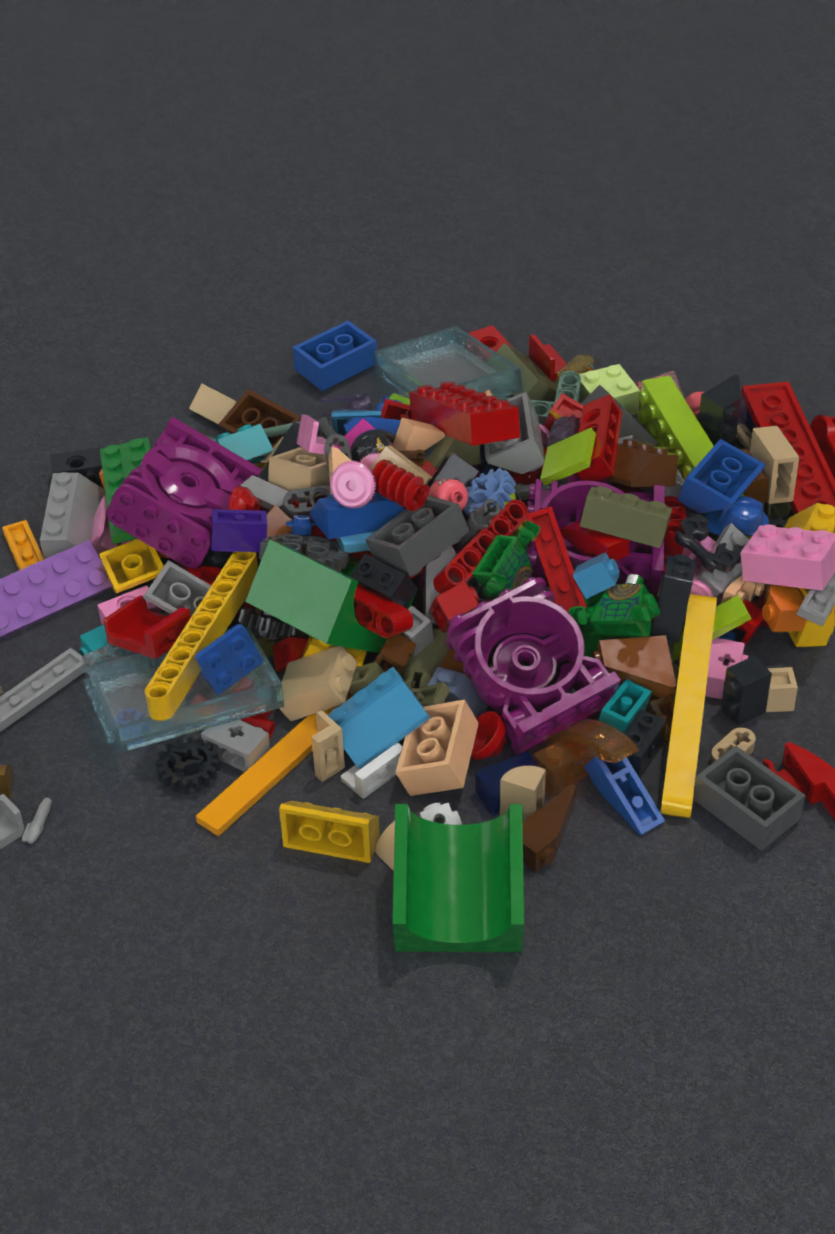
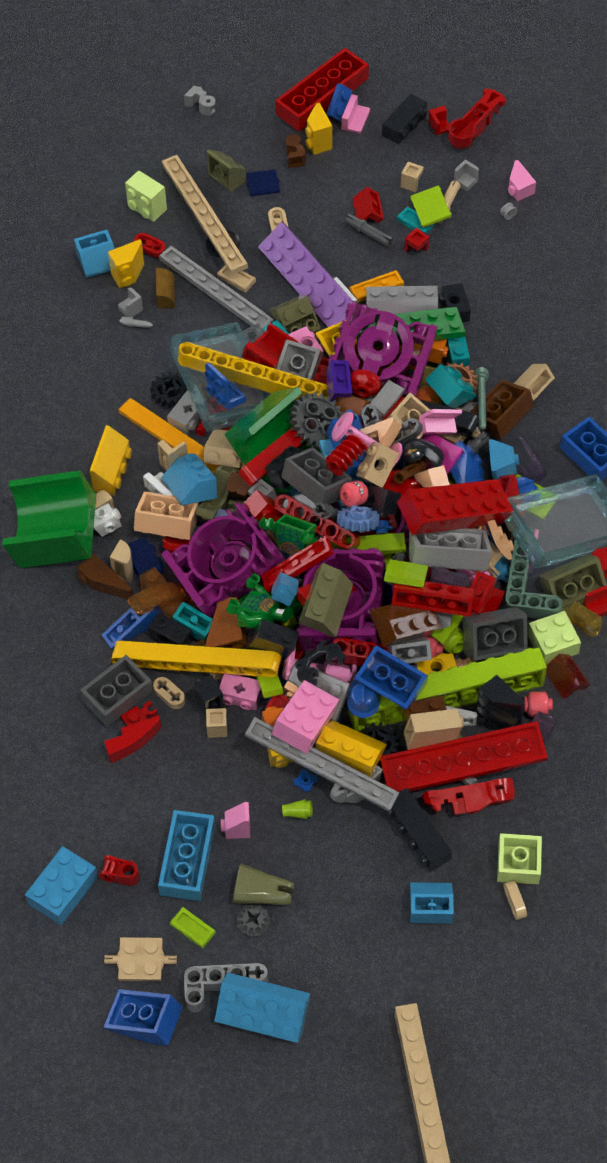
camera: 90 degrees right, 15 degrees up
(64, 621) = (296, 314): none -> olive slope

